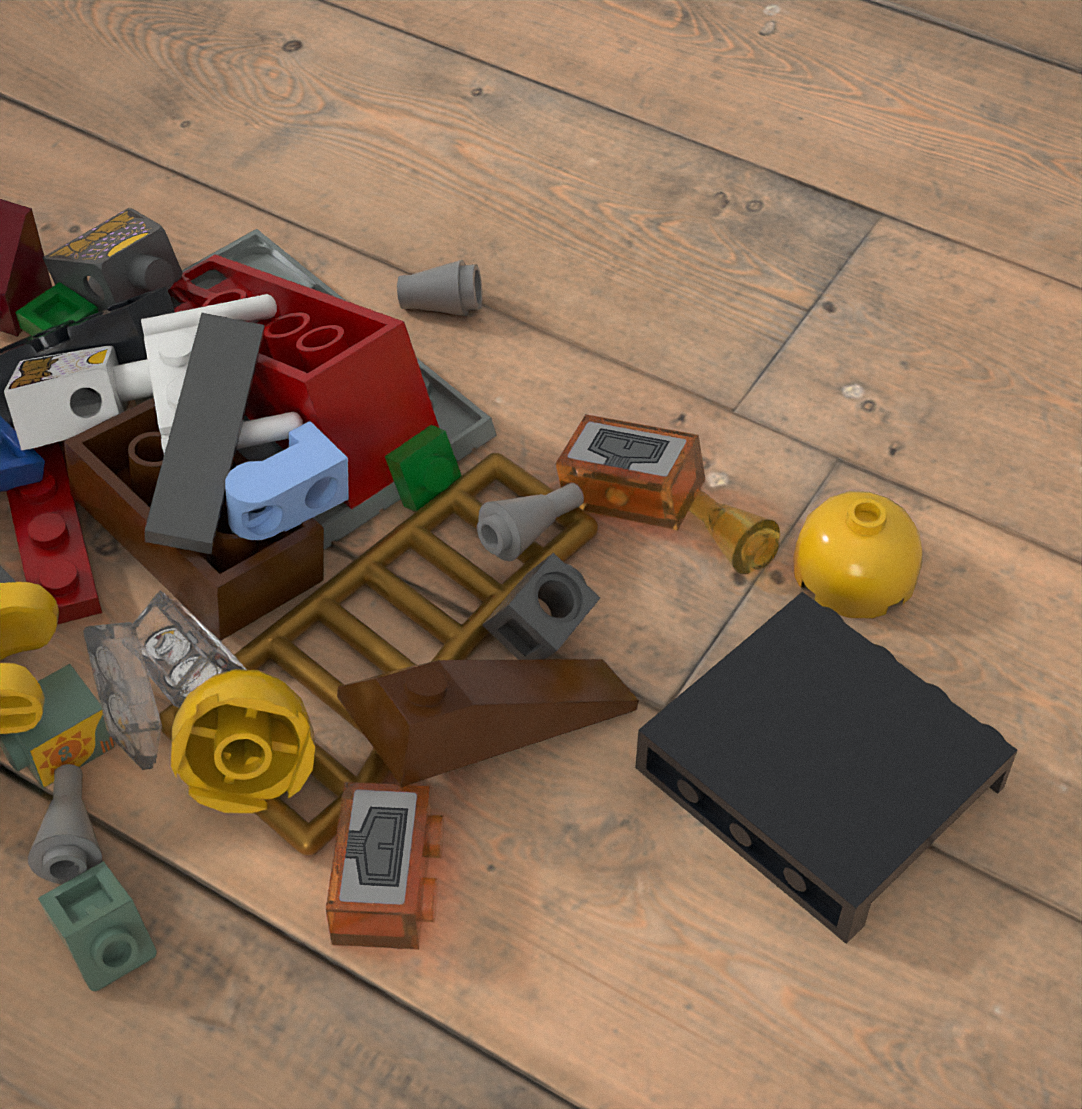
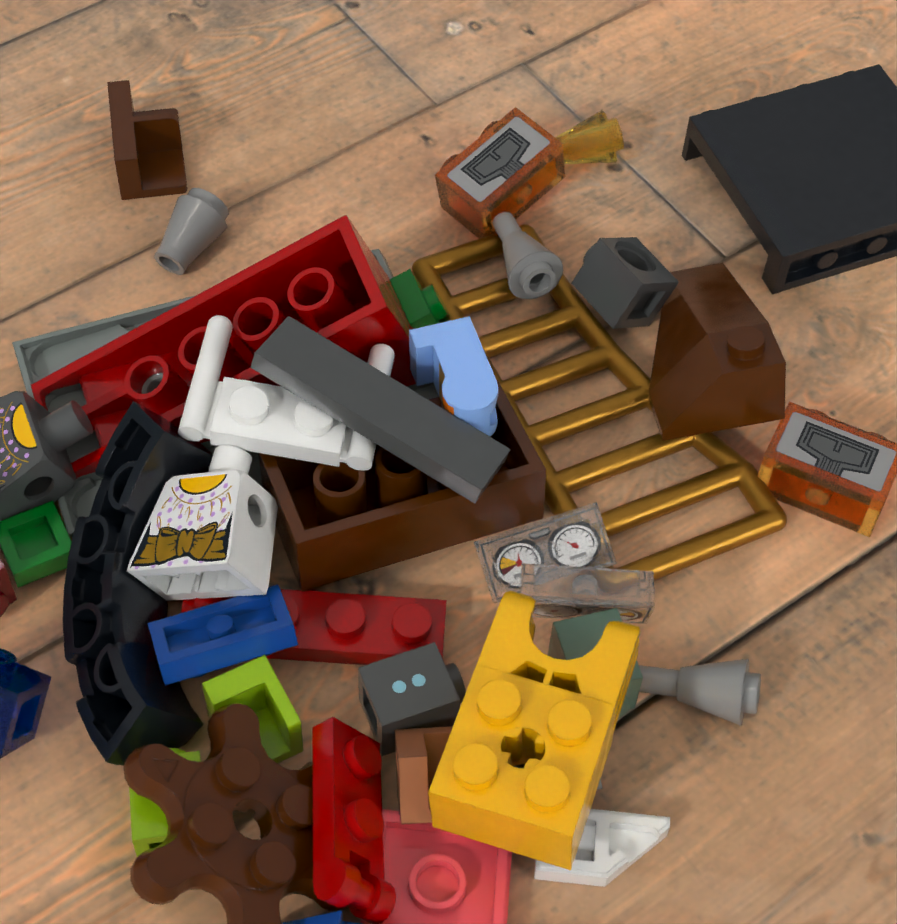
camera: 70 degrees left, 5 degrees up
(99, 926) = (813, 683): sand green bracket -> none
(242, 741) = (695, 506): yellow cylinder -> none
(529, 224) = (145, 147): none -> reddish brown panel
(858, 554) = (641, 83): yellow cylinder -> none

